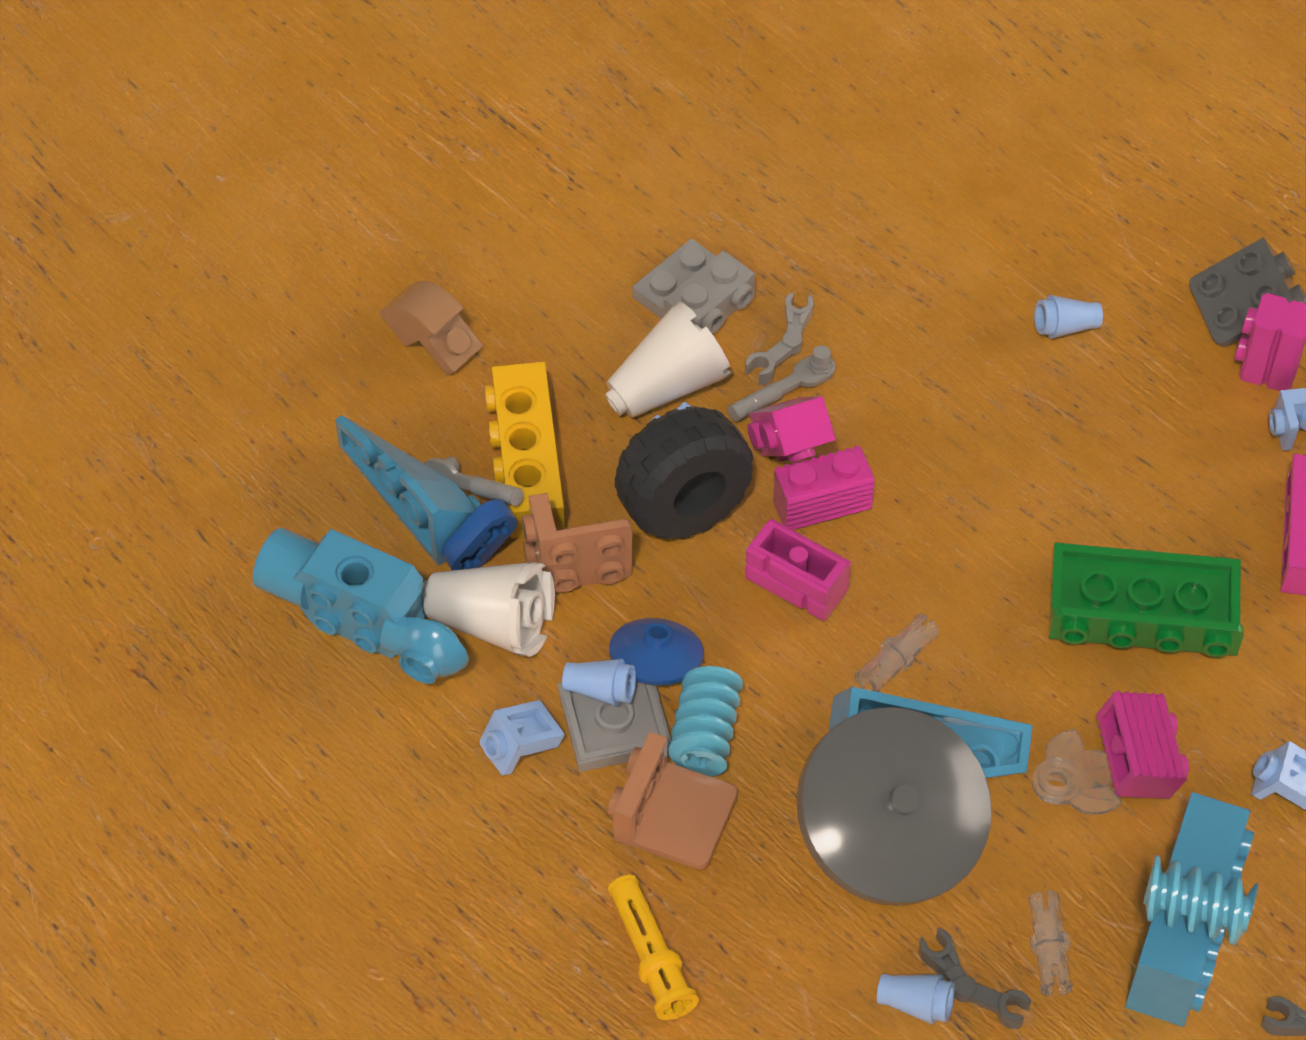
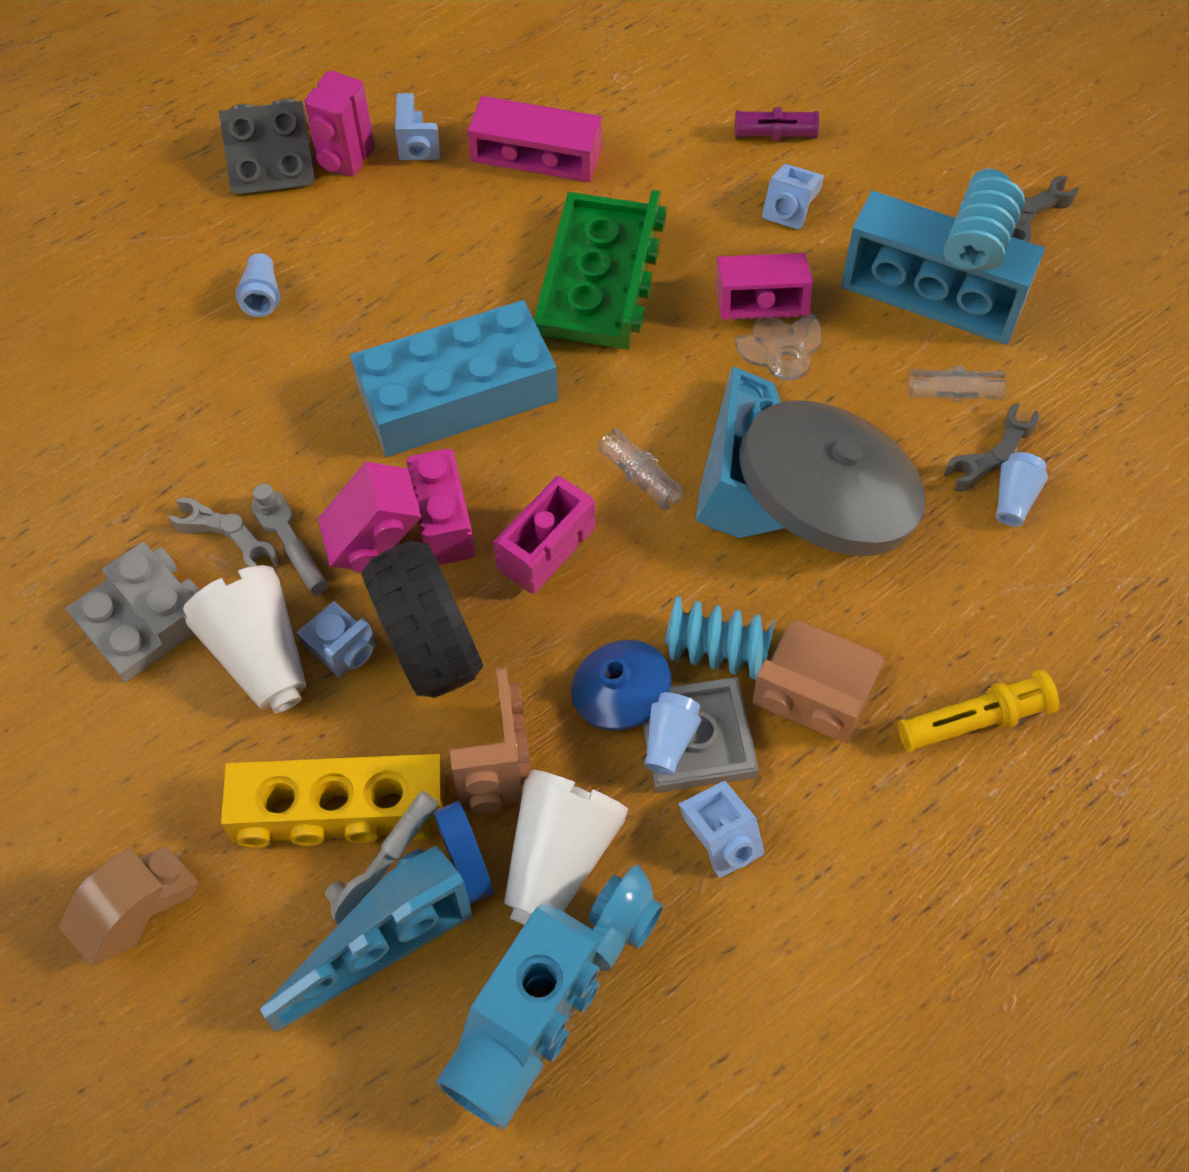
camera: 85 degrees left, 5 degrees up
(975, 485) = (455, 377): none -> dark azure brick

